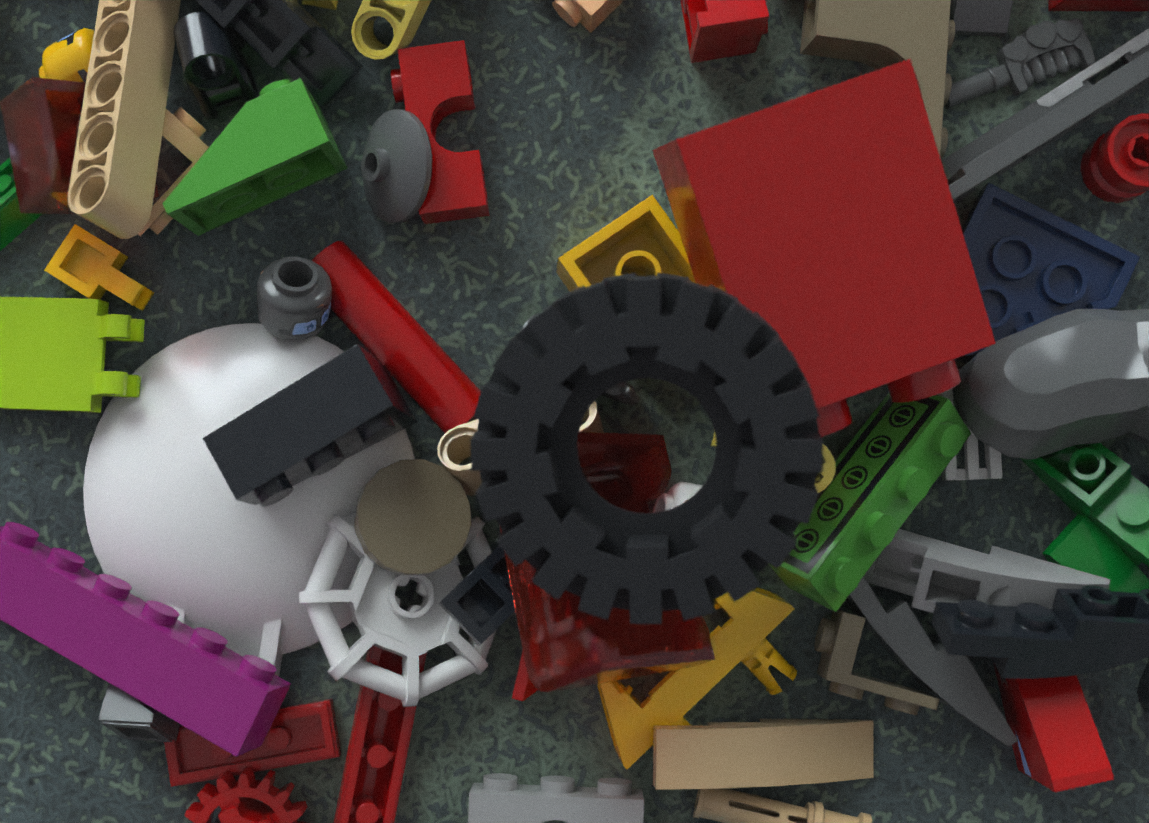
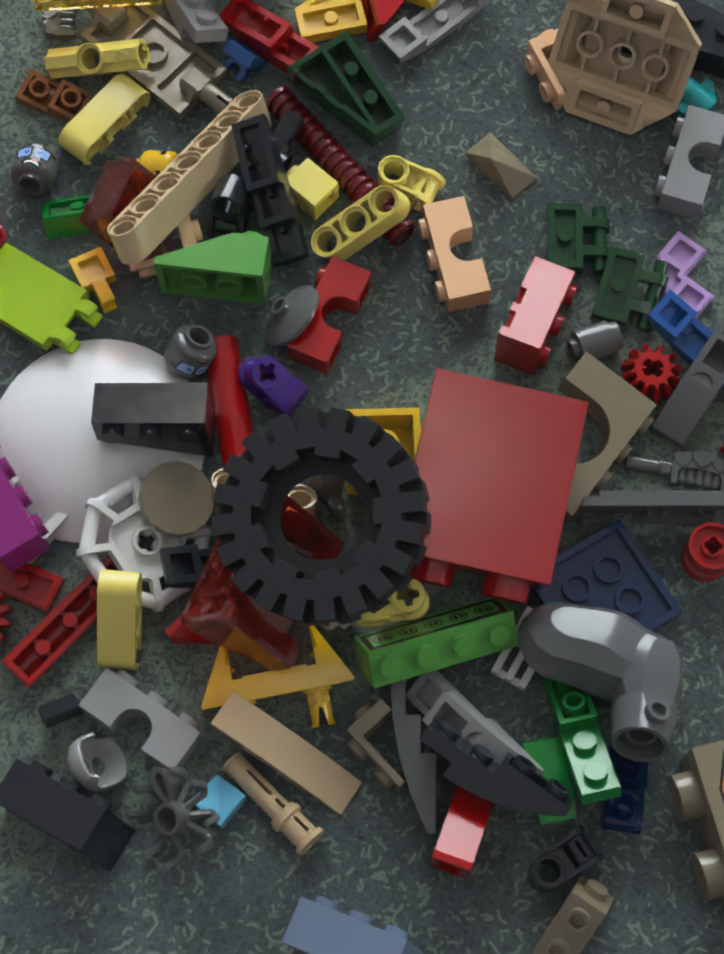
camera: 30 degrees right, 15 degrees down
(434, 279) = (277, 386): none -> dark purple piece
(443, 722) = (119, 619): none -> light yellow beam

